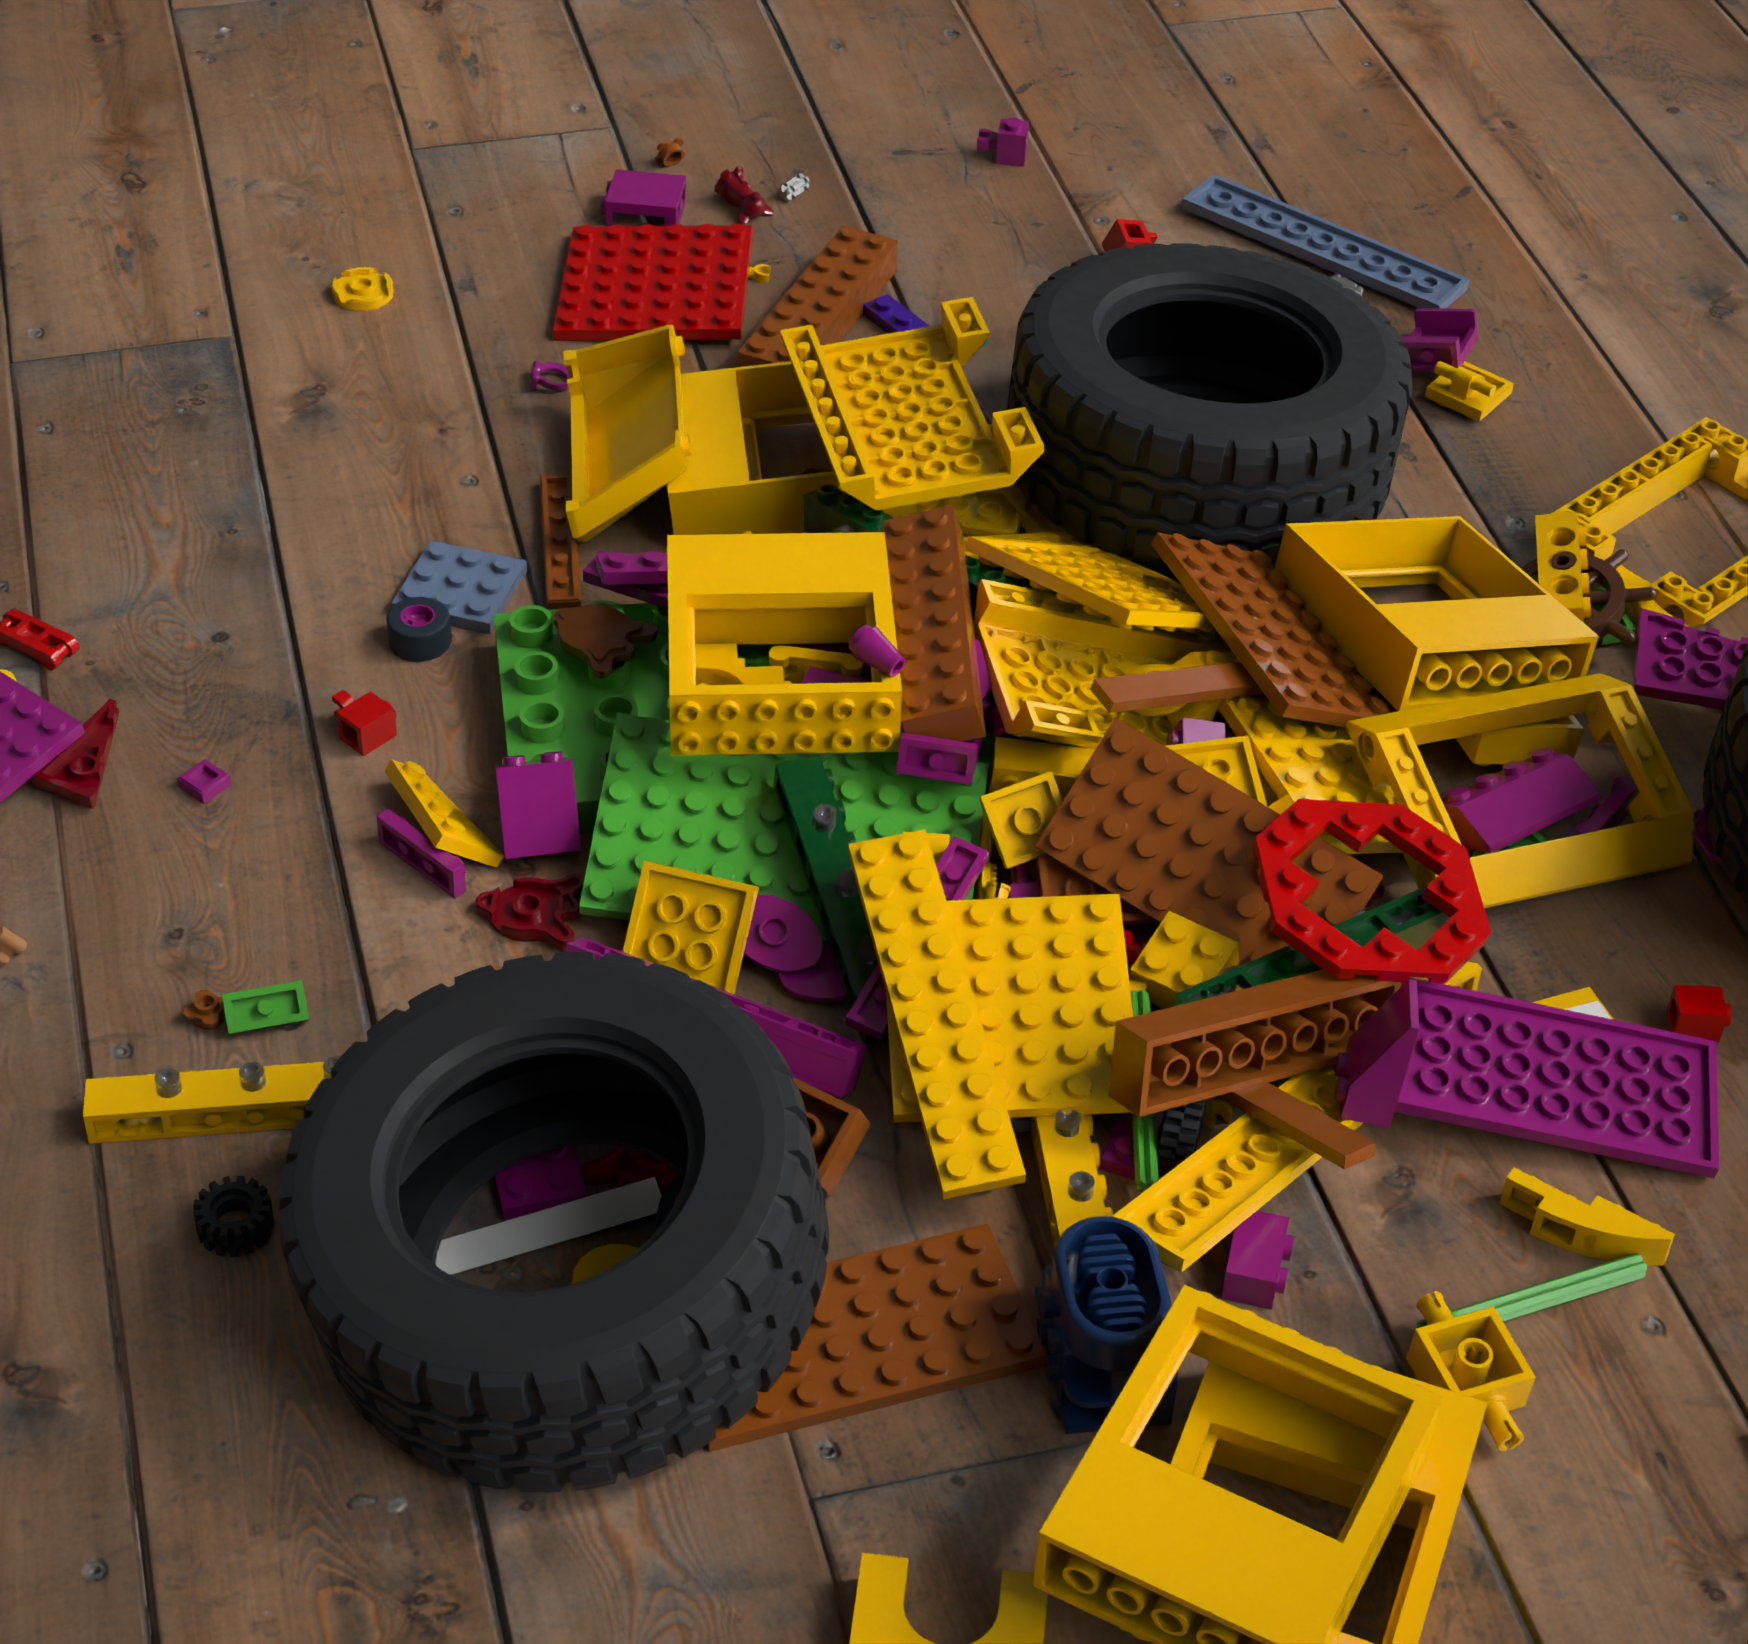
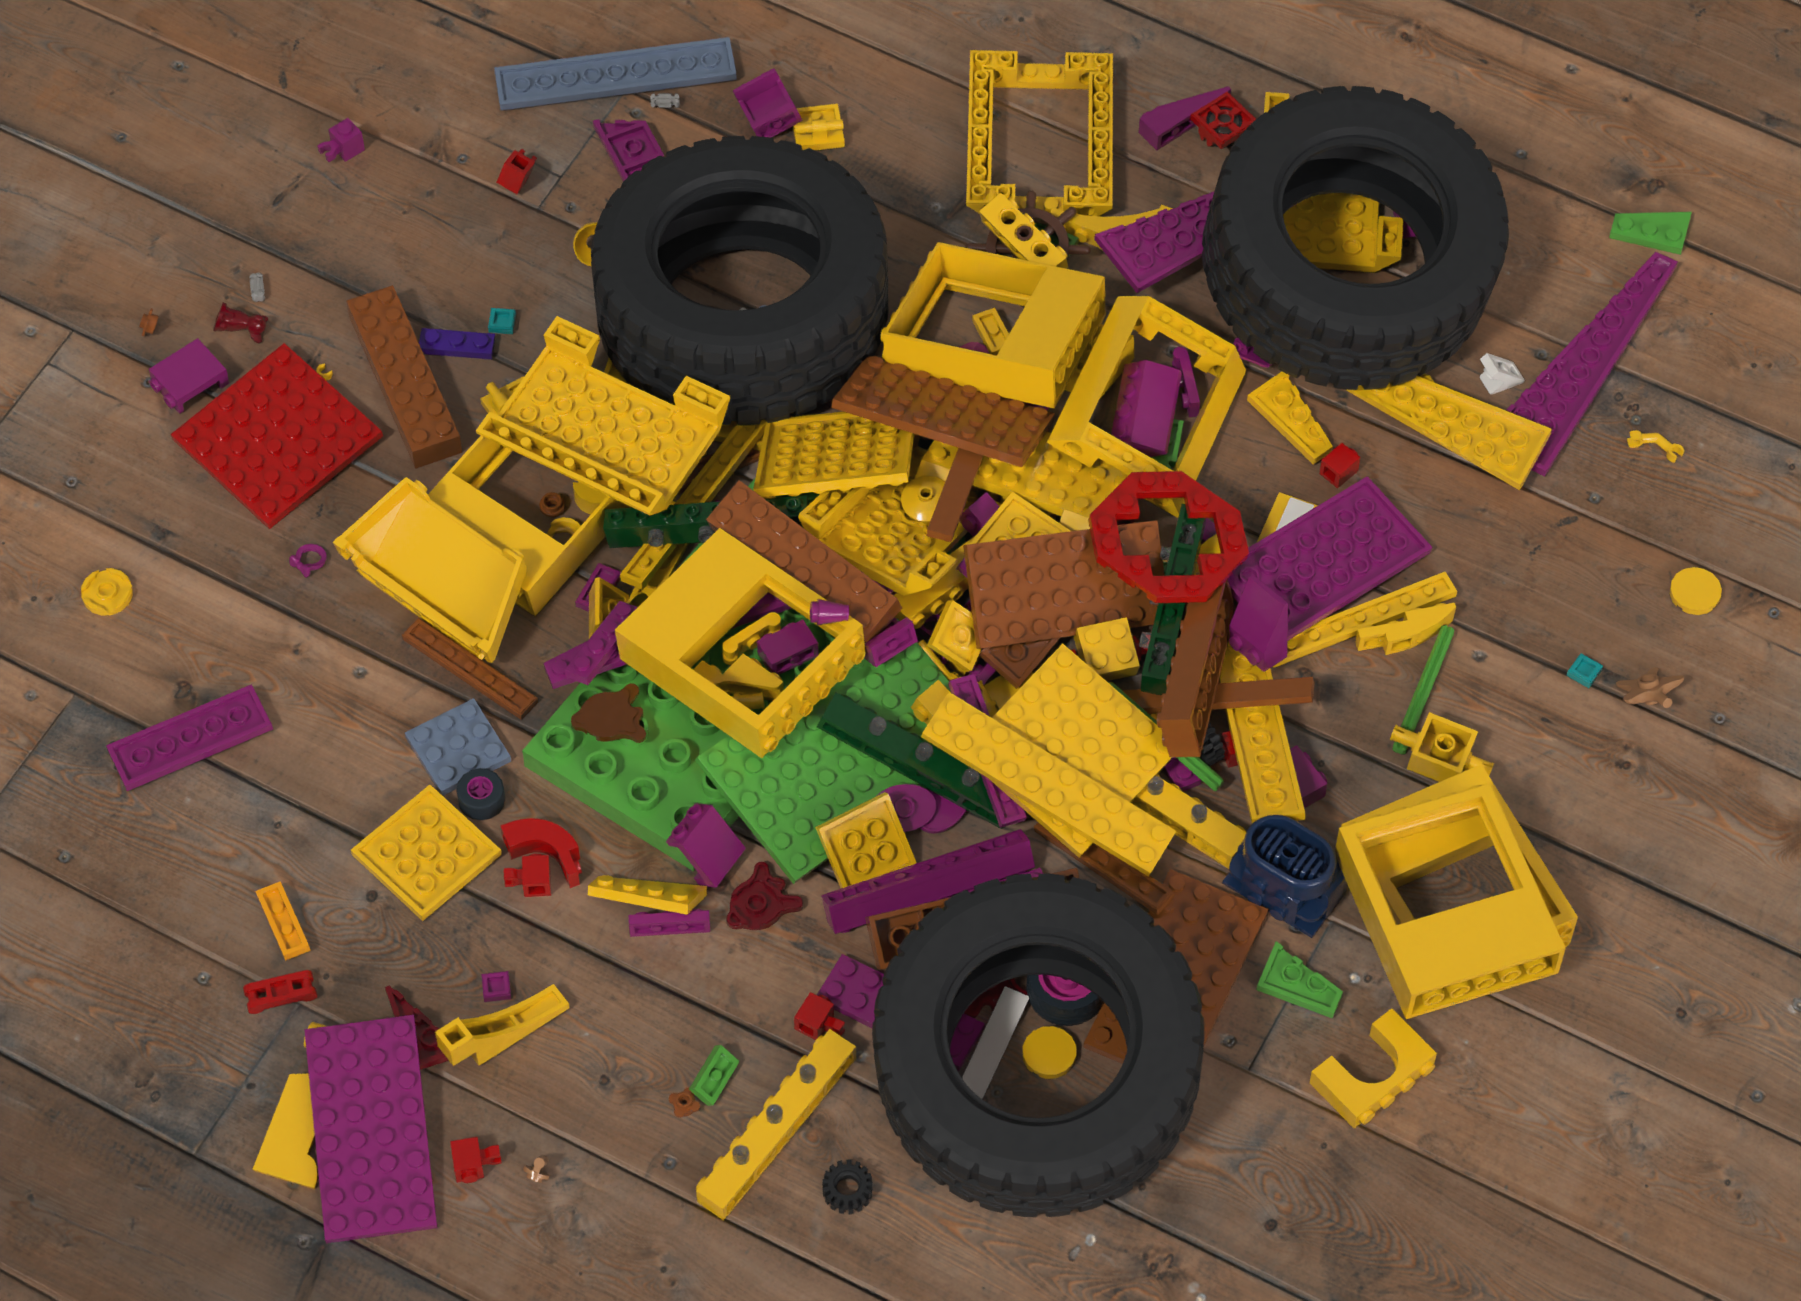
camera: 45 degrees left, 15 degrees up
(117, 591) = (282, 920): none -> light orange plate
(129, 802) = (495, 1032): none -> yellow arch
(260, 418) = (189, 737): none -> magenta plate
(307, 636) = (426, 852): none -> yellow plate
(414, 696) = (544, 837): none -> red arch
(925, 1208) = (1128, 879): none -> dark orange tile
(980, 1458) = (1294, 982): none -> bright green wing
(1497, 1156) = (1374, 612): none -> yellow plate
(1693, 928) = (1286, 411): none -> yellow wing

